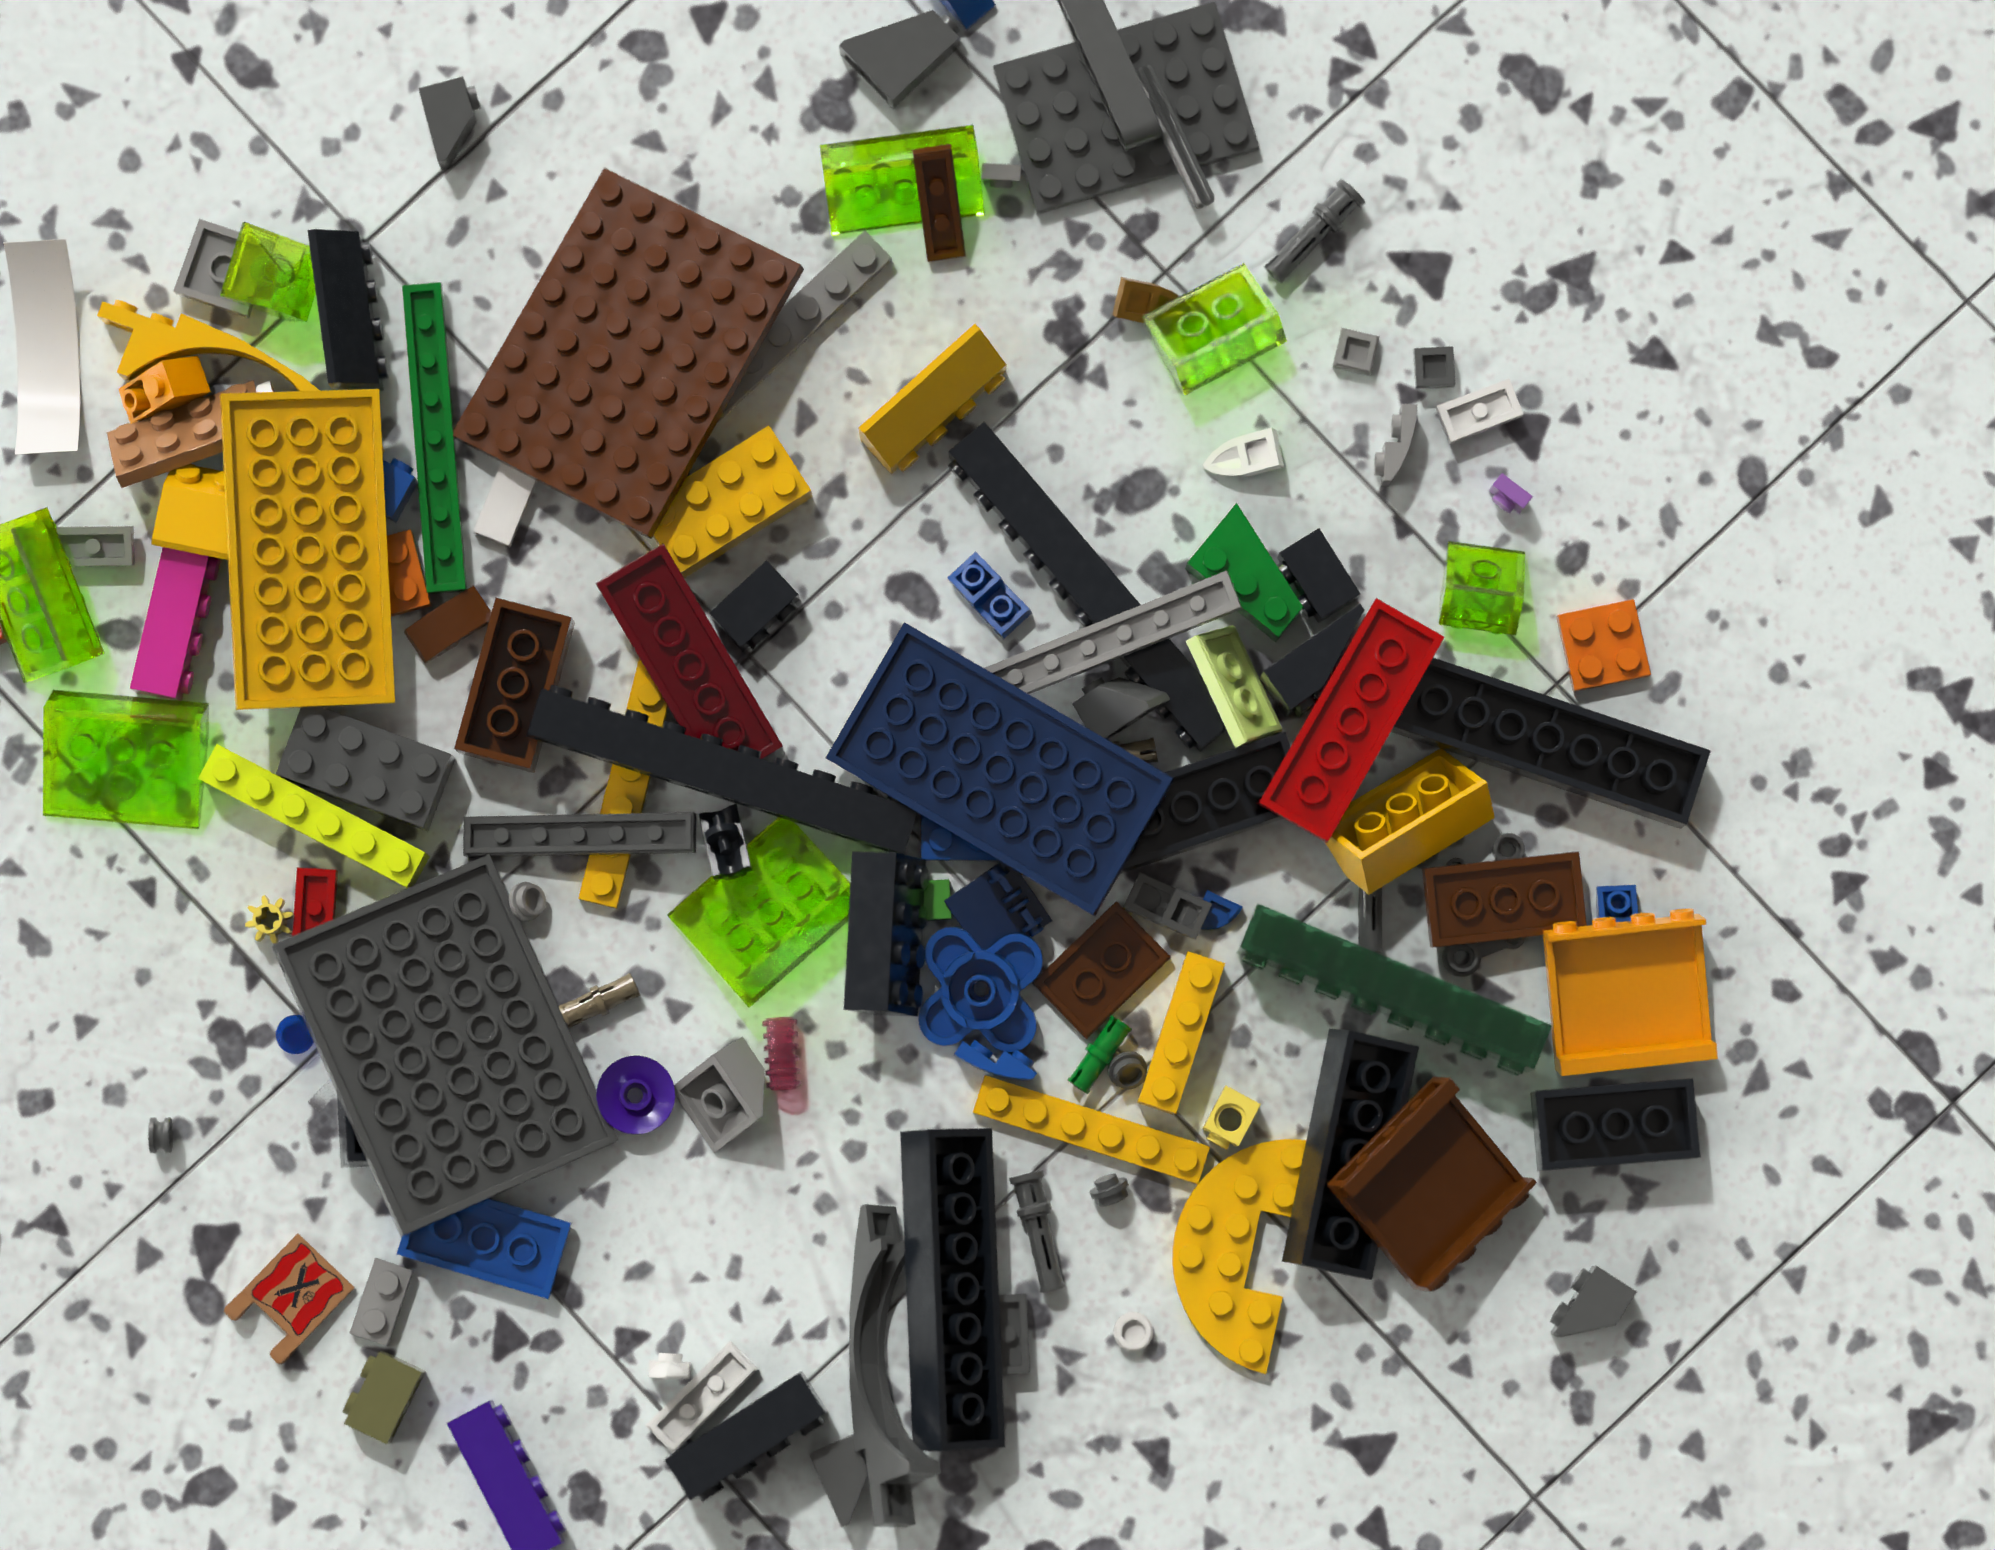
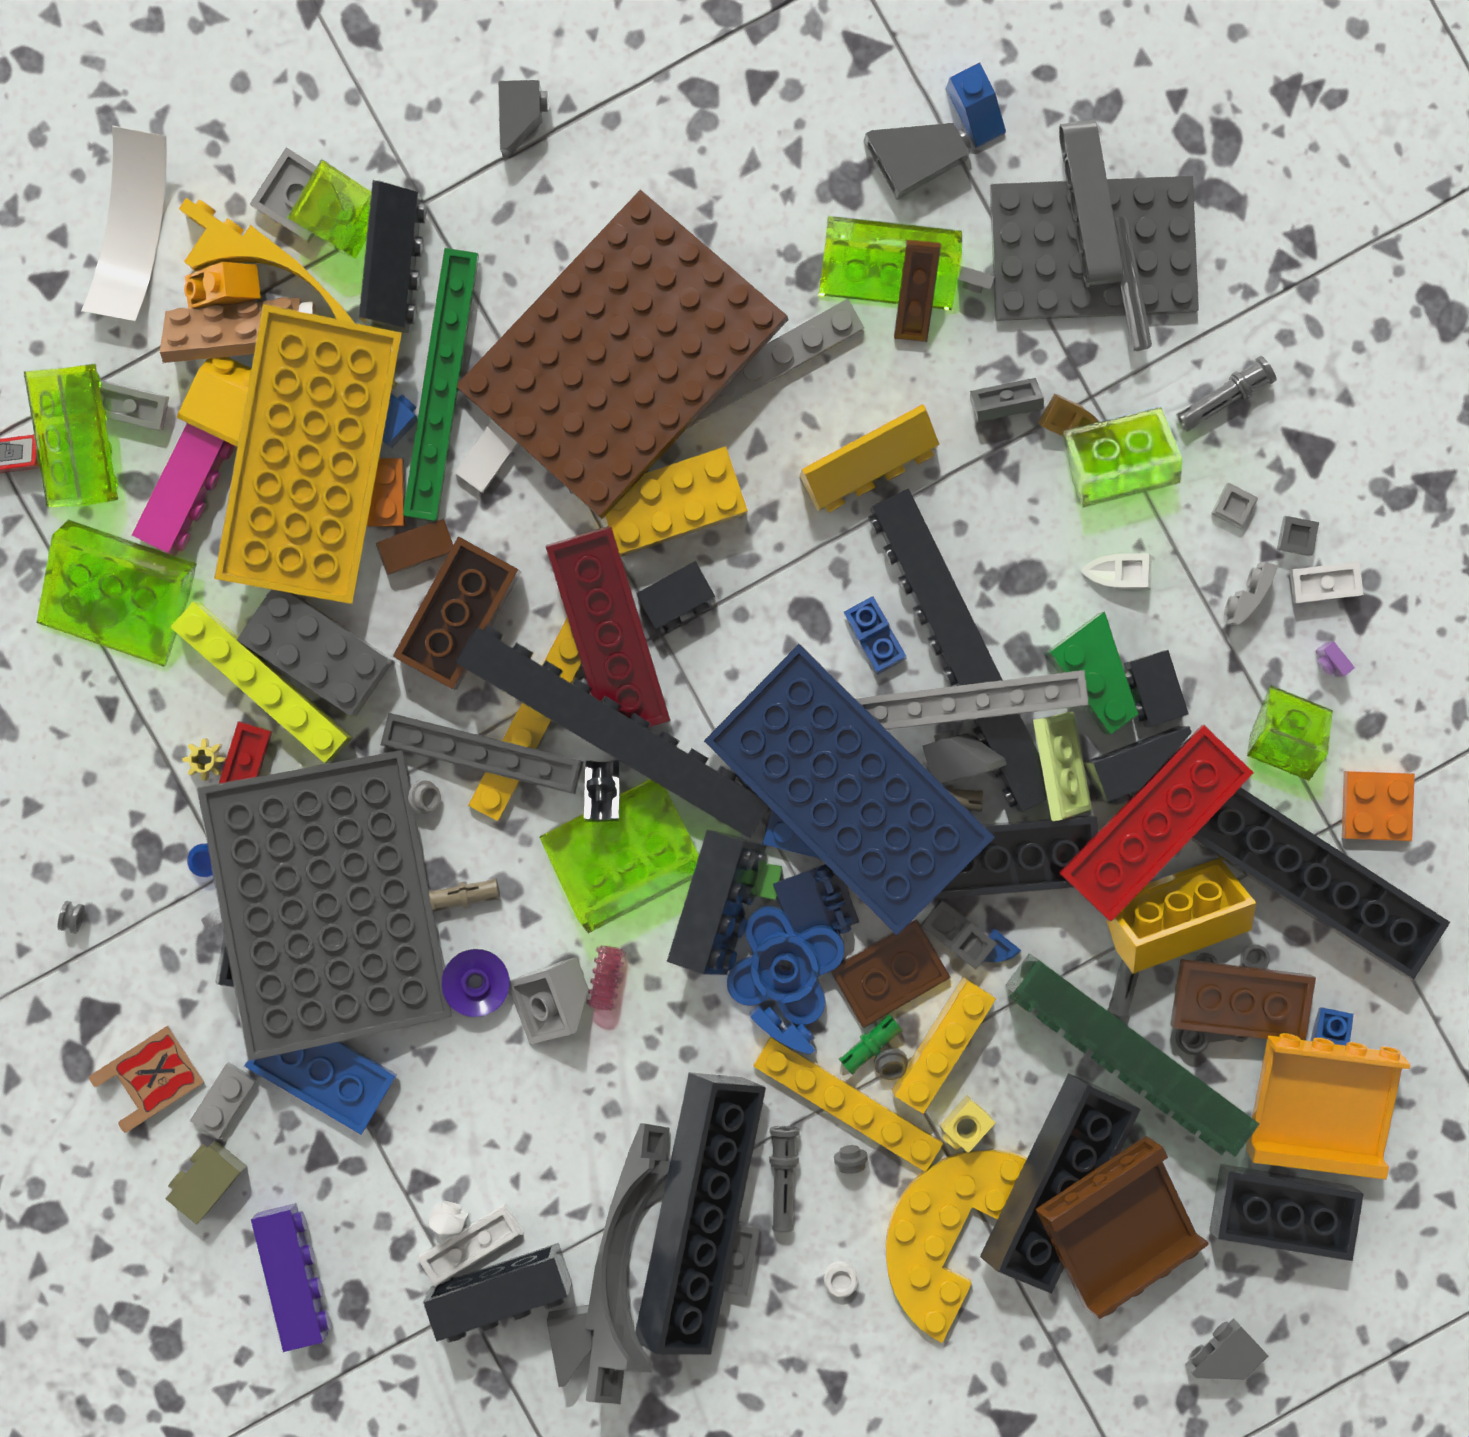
camera: 15 degrees right, 5 degrees up
(1070, 297) = (1007, 399): none -> dark grey plate

